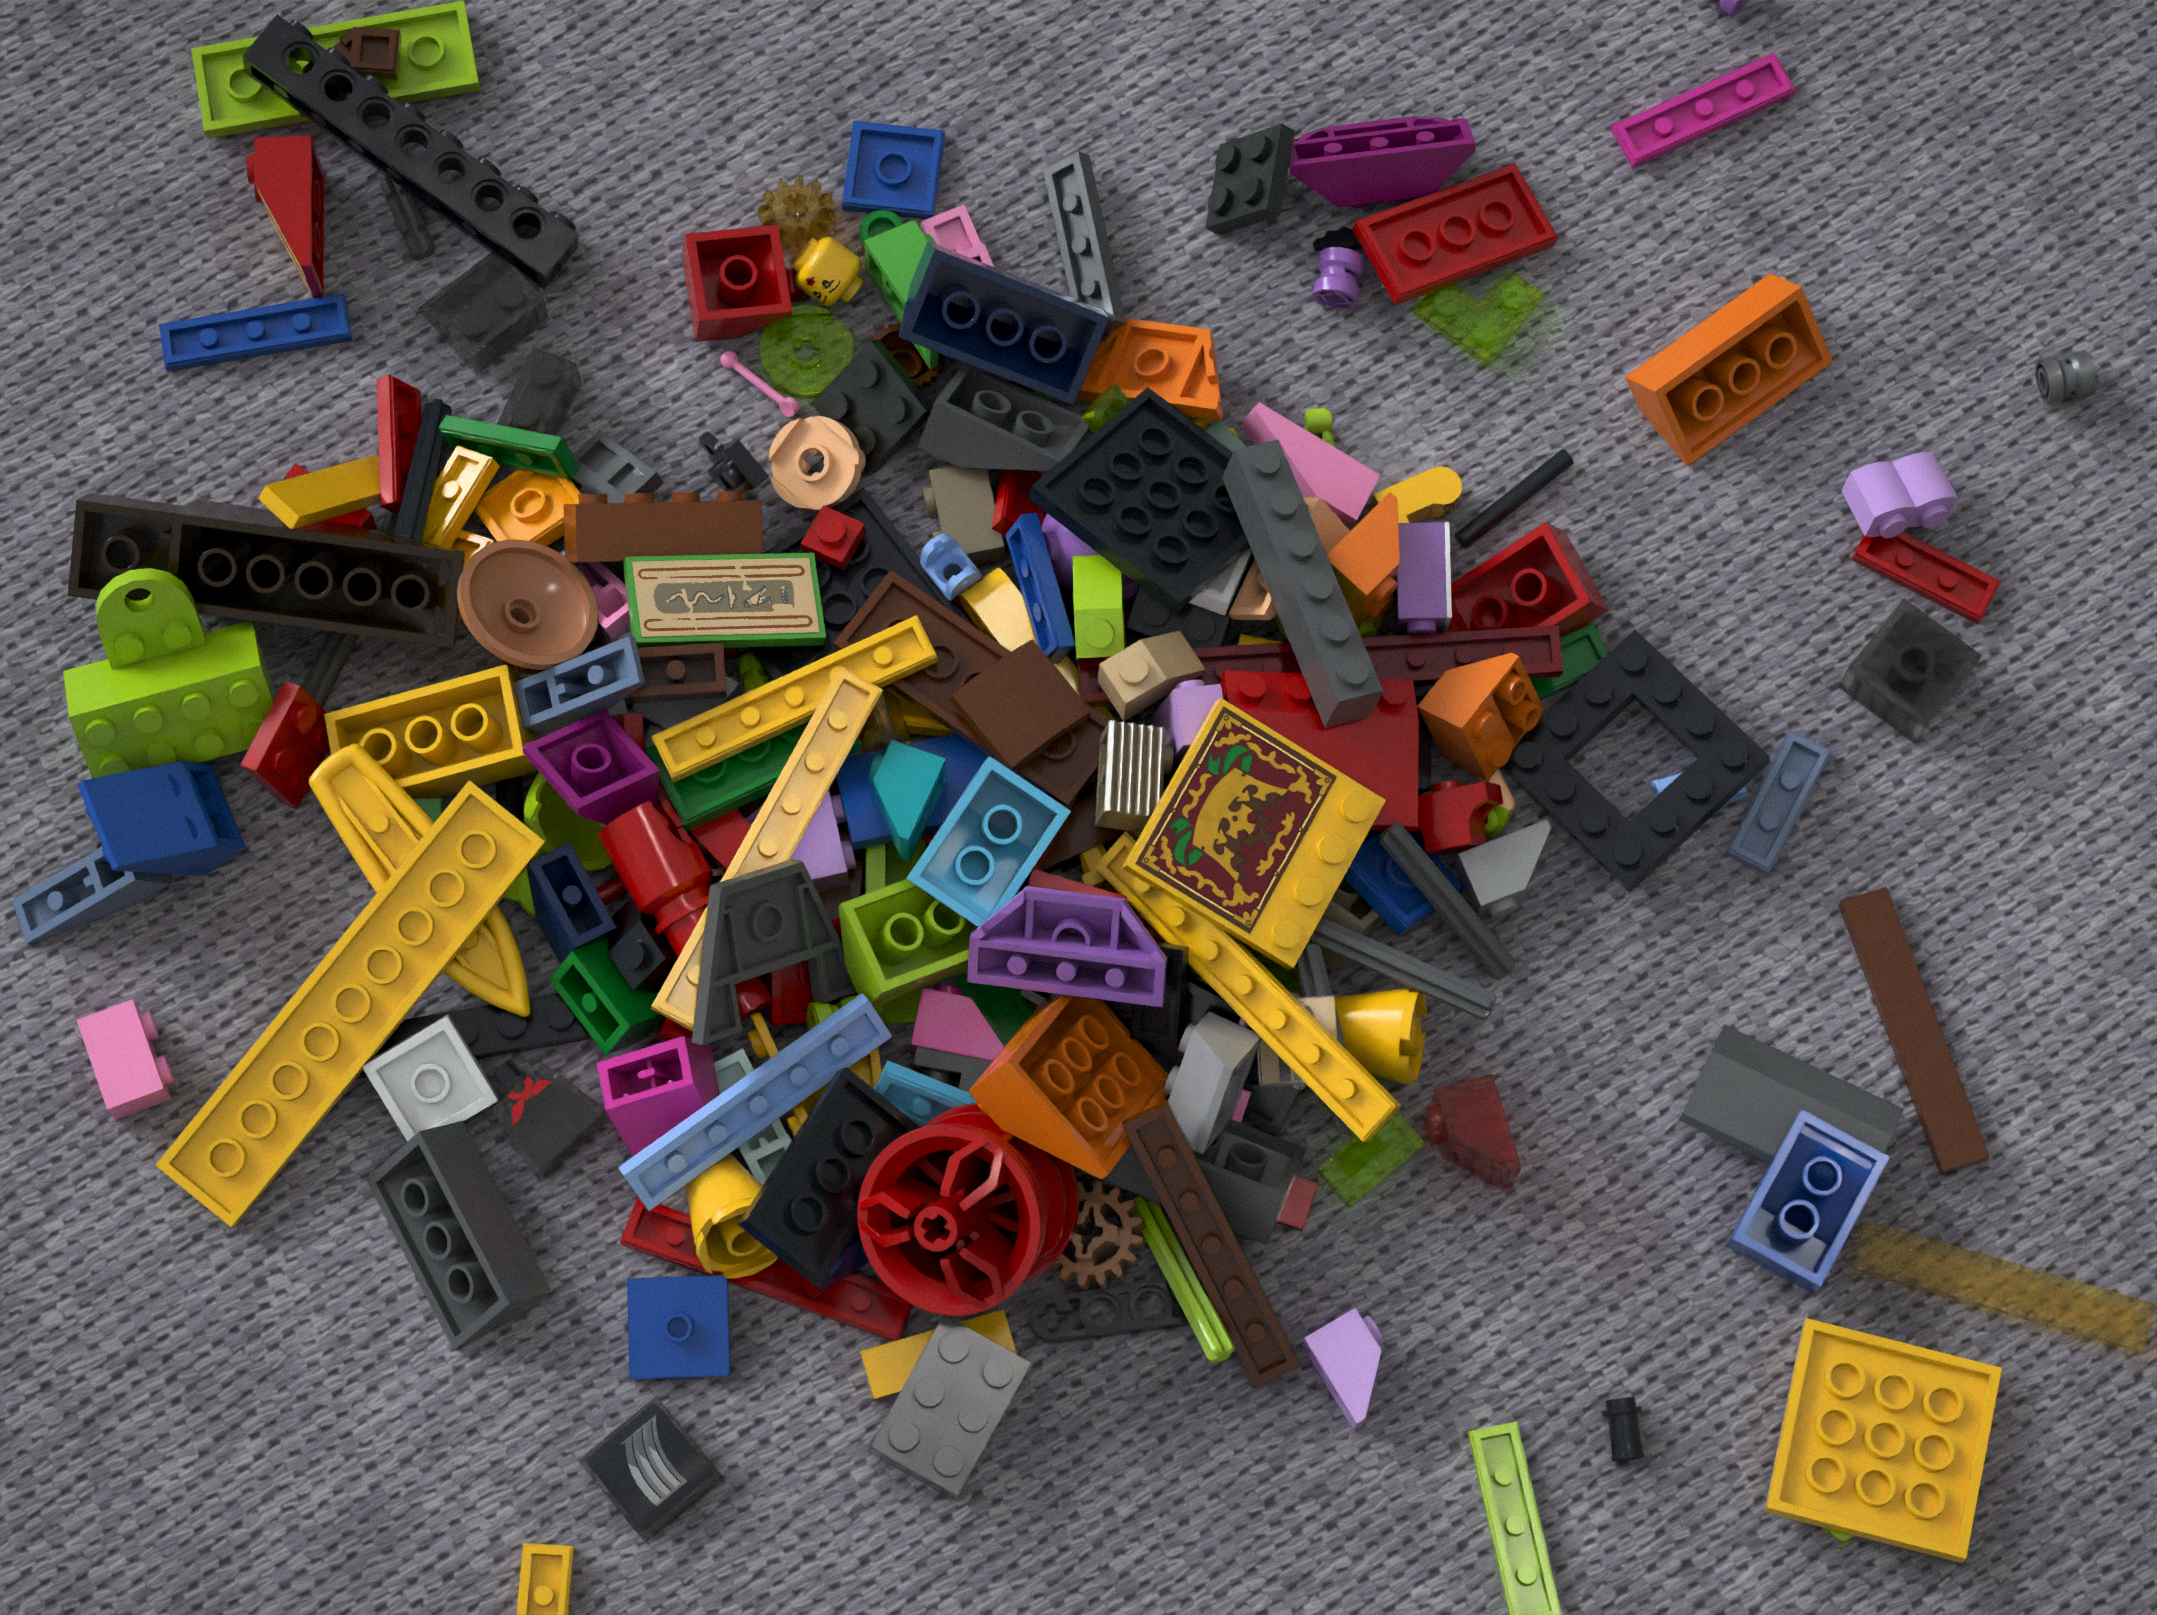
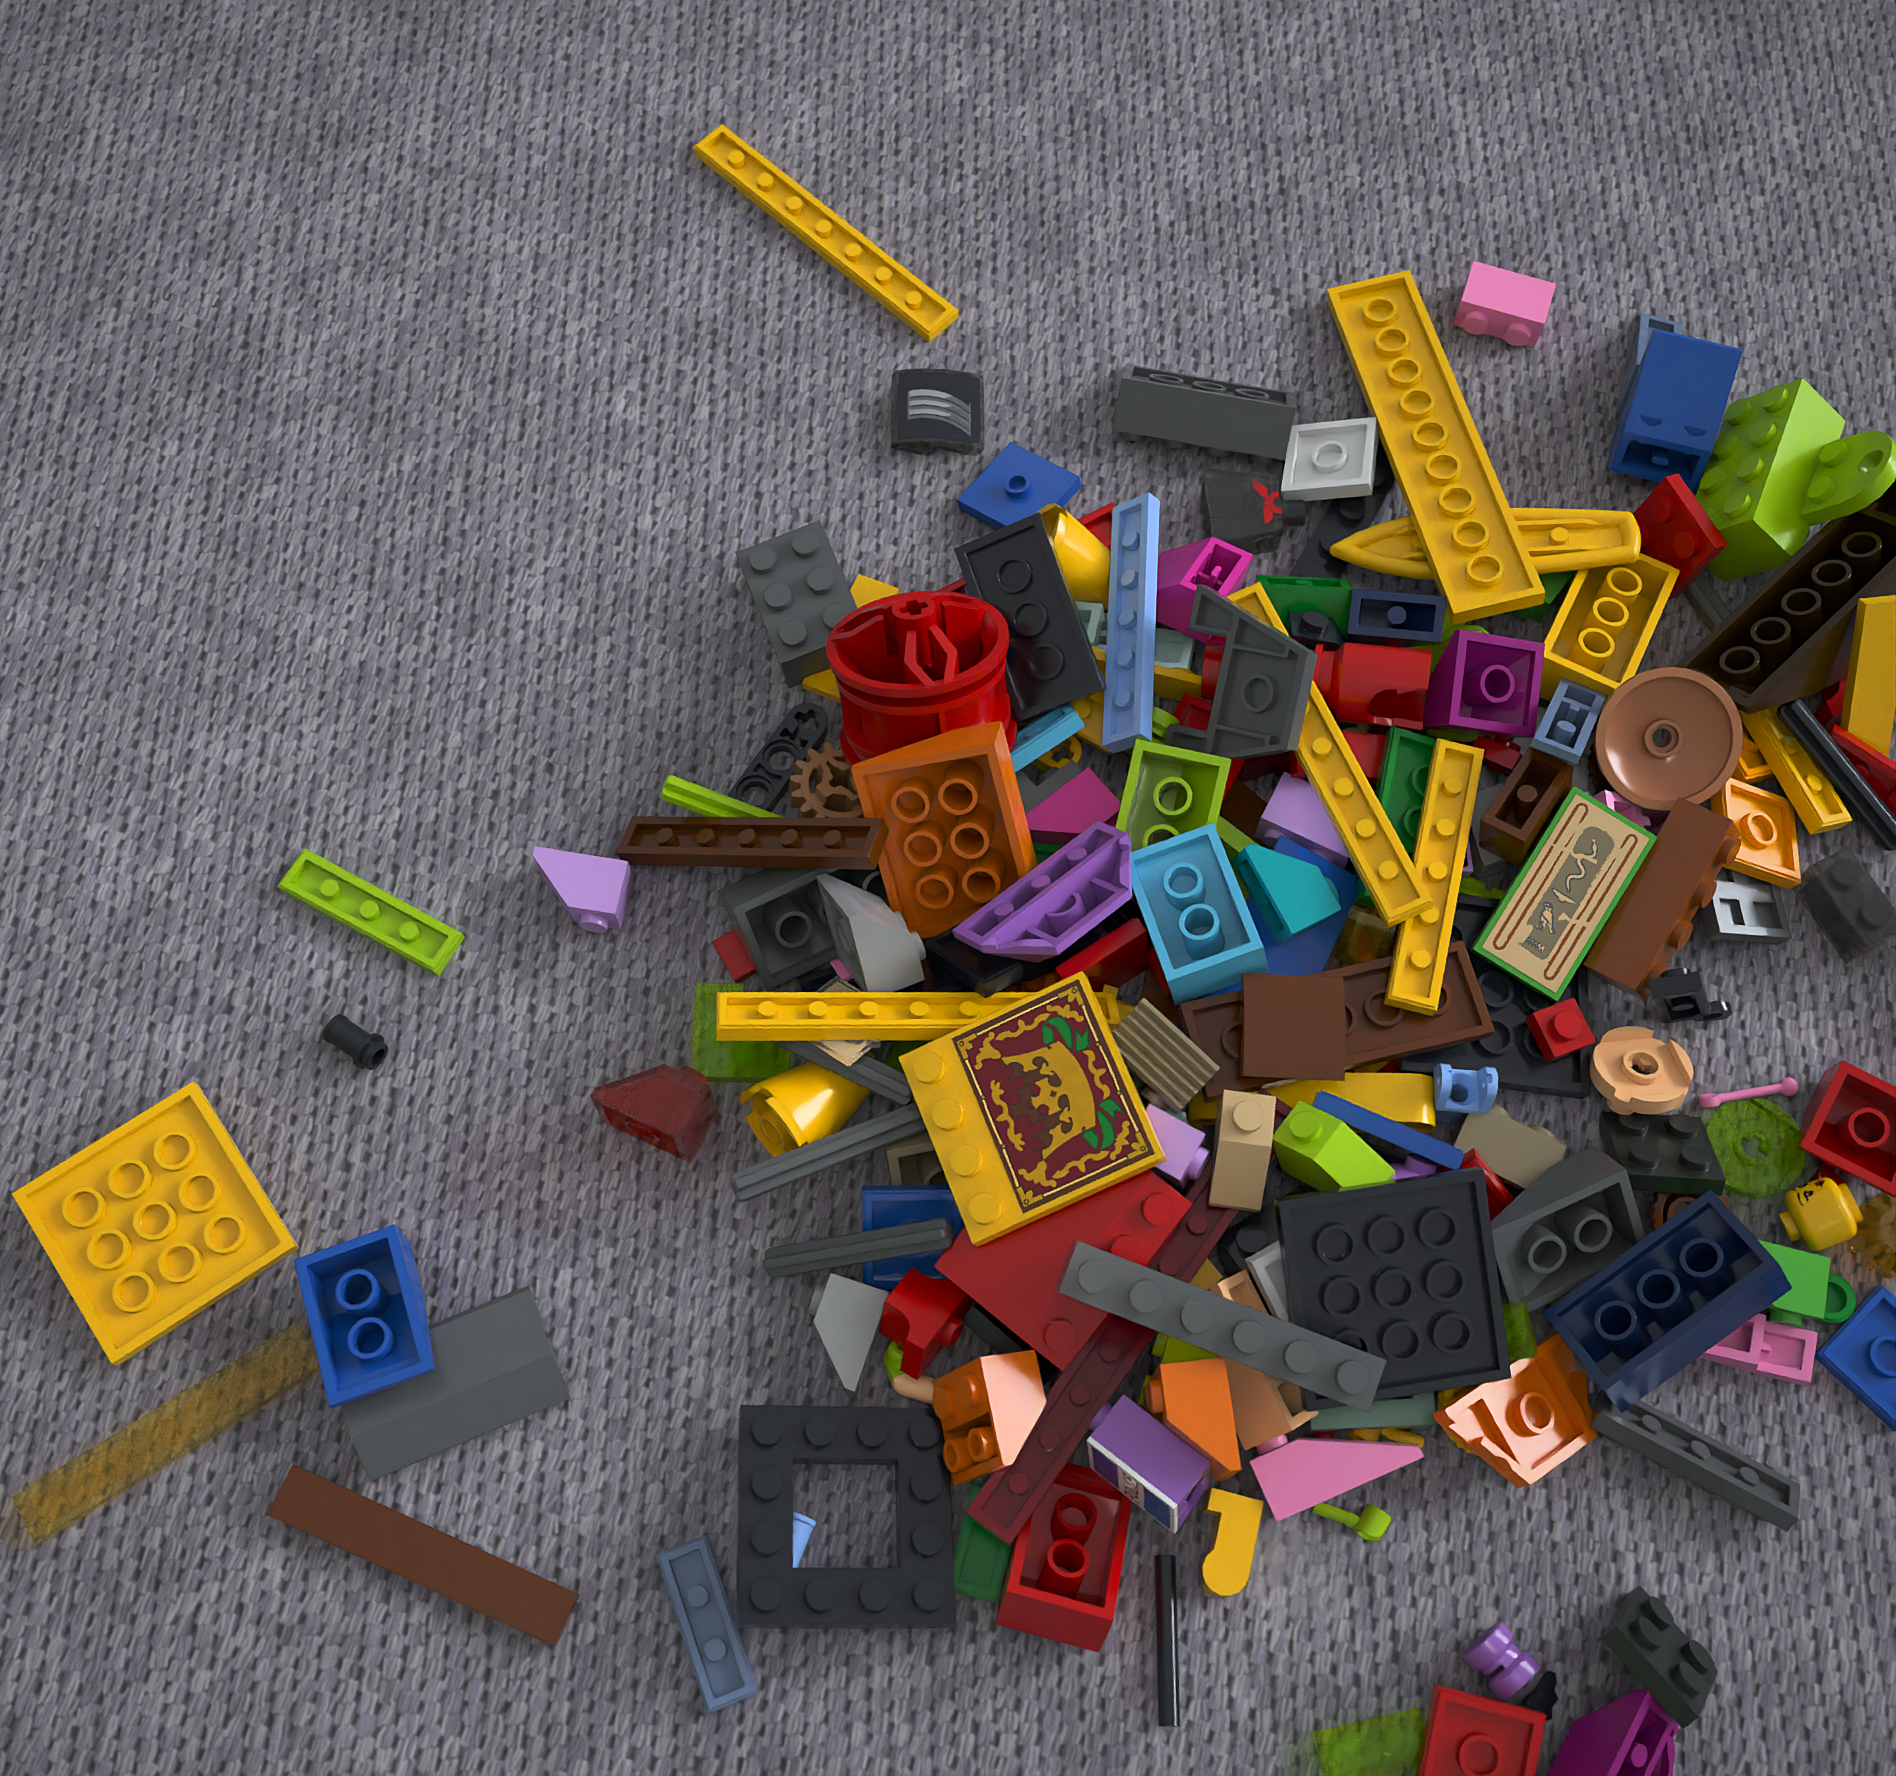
camera: 130 degrees right, 5 degrees down
(512, 446) = (1822, 847): green tile -> none

